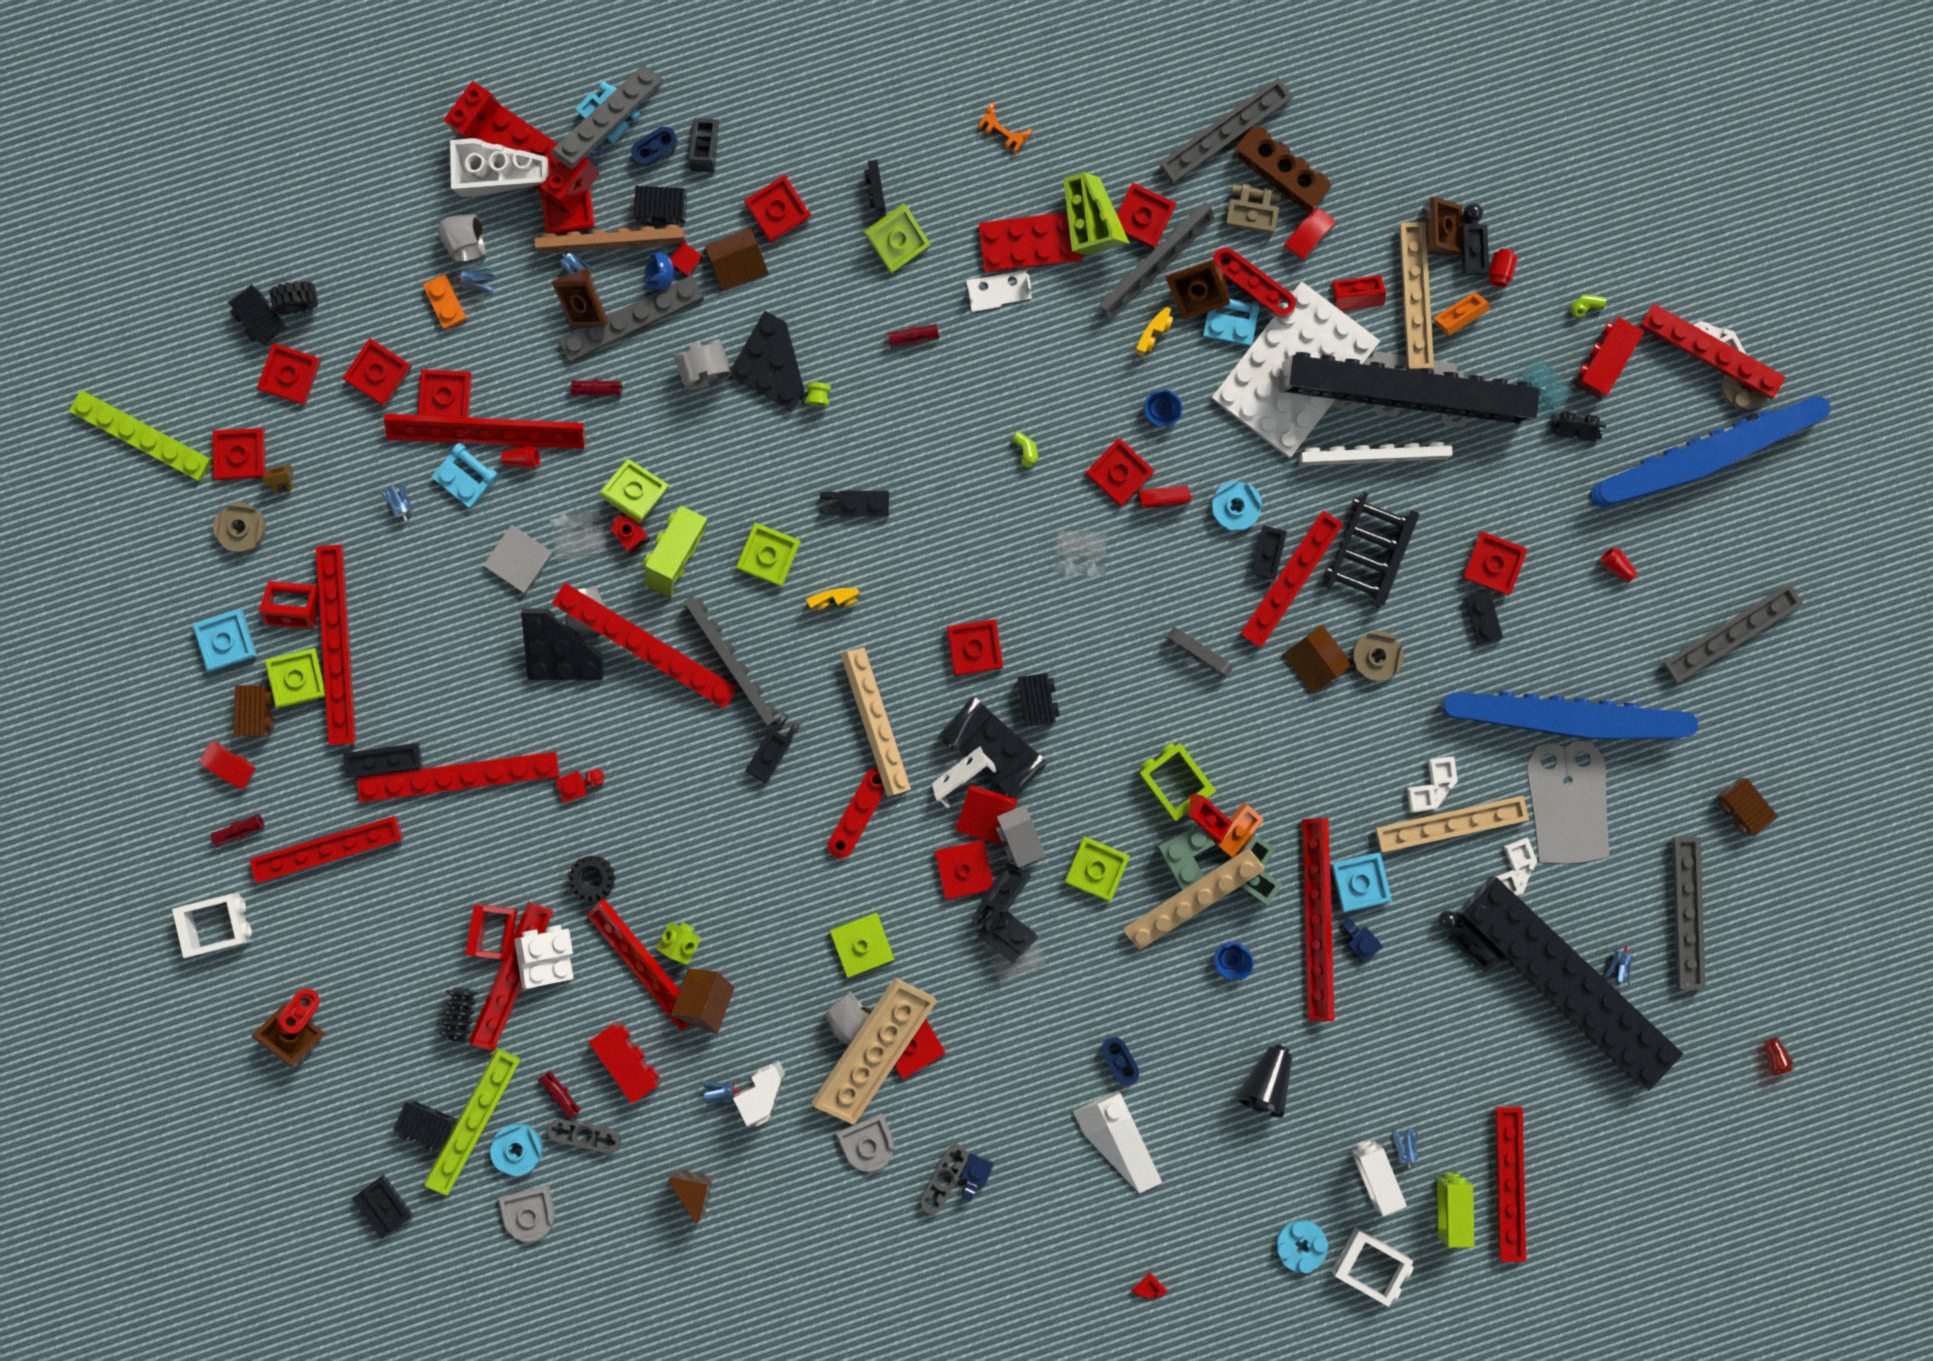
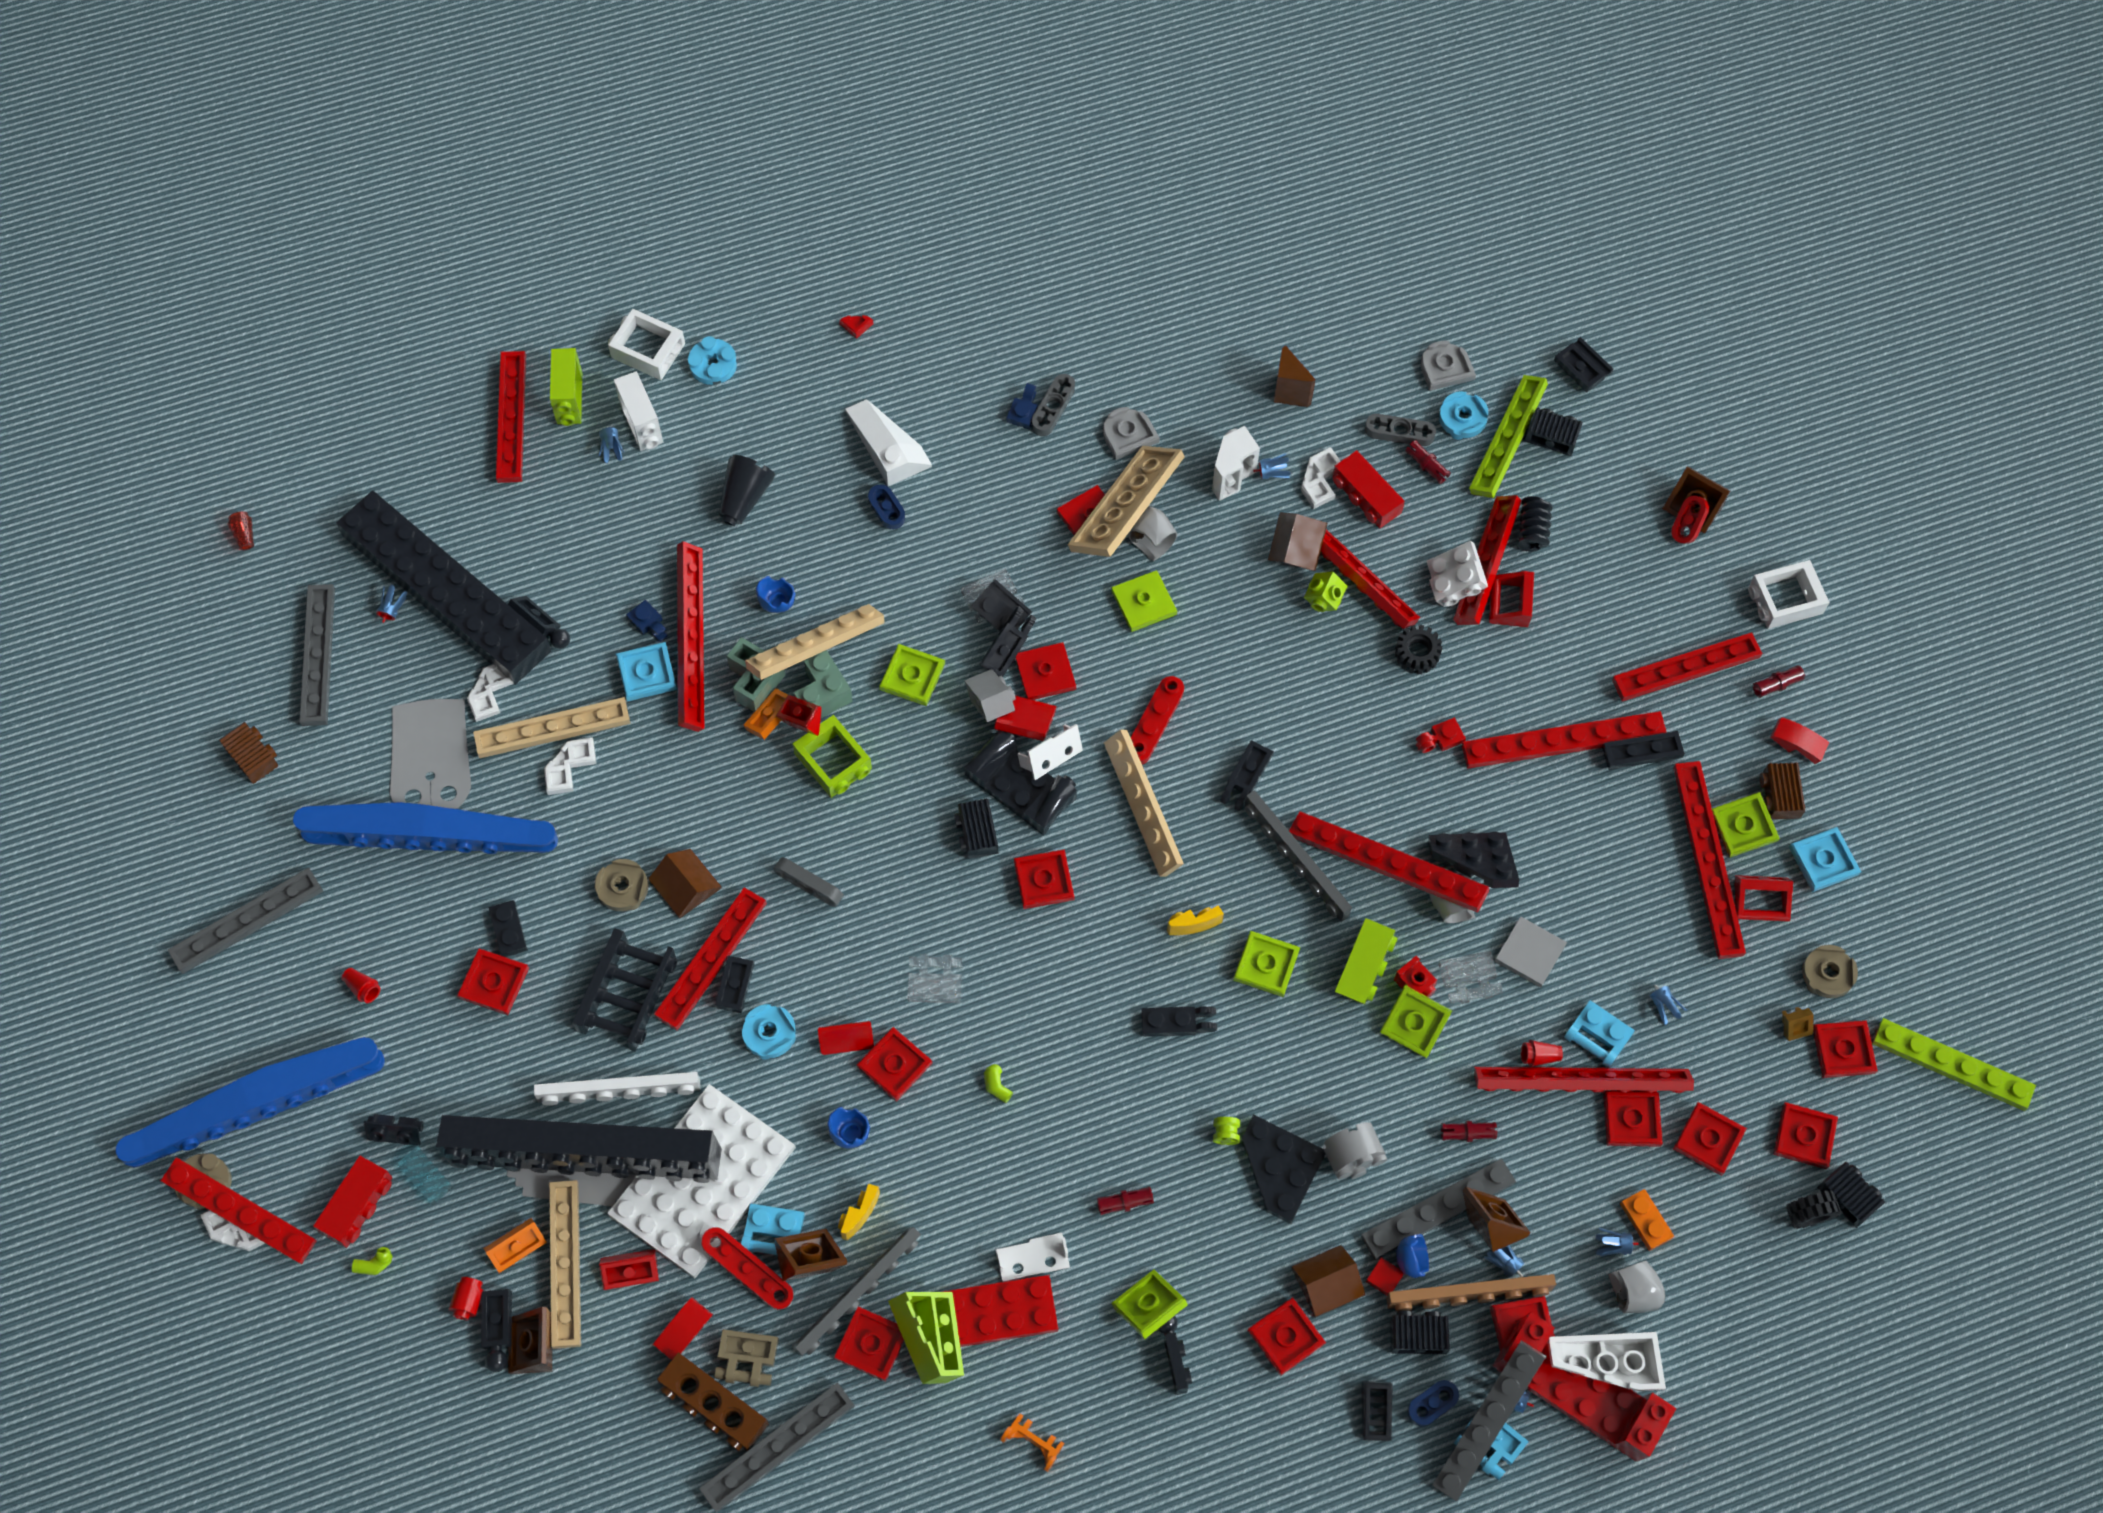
camera: 175 degrees right, 20 degrees down
(679, 1074) = (1314, 483): none -> white tile

